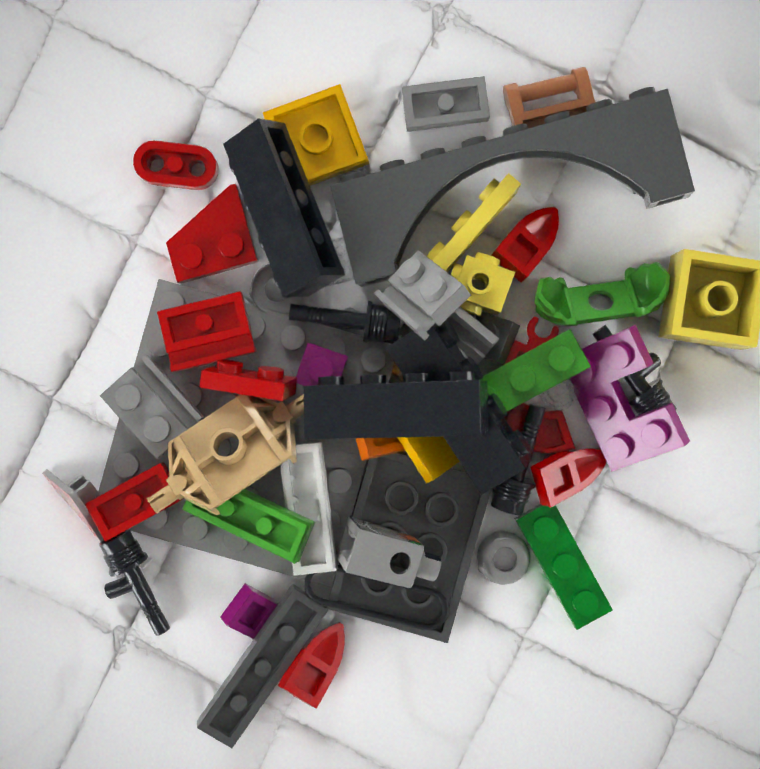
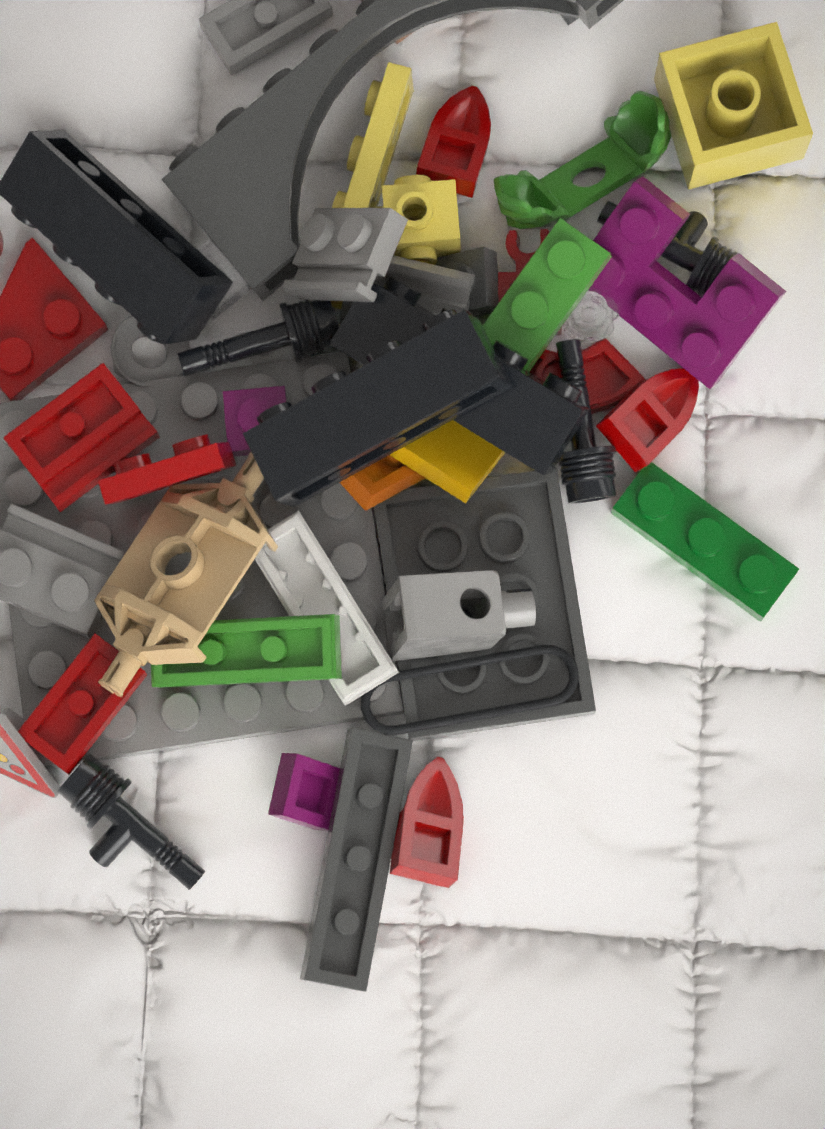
camera: 20 degrees left, 10 degrees down
(322, 134) = (122, 124): yellow tile -> none
(488, 548) = (607, 593): light grey piece -> none

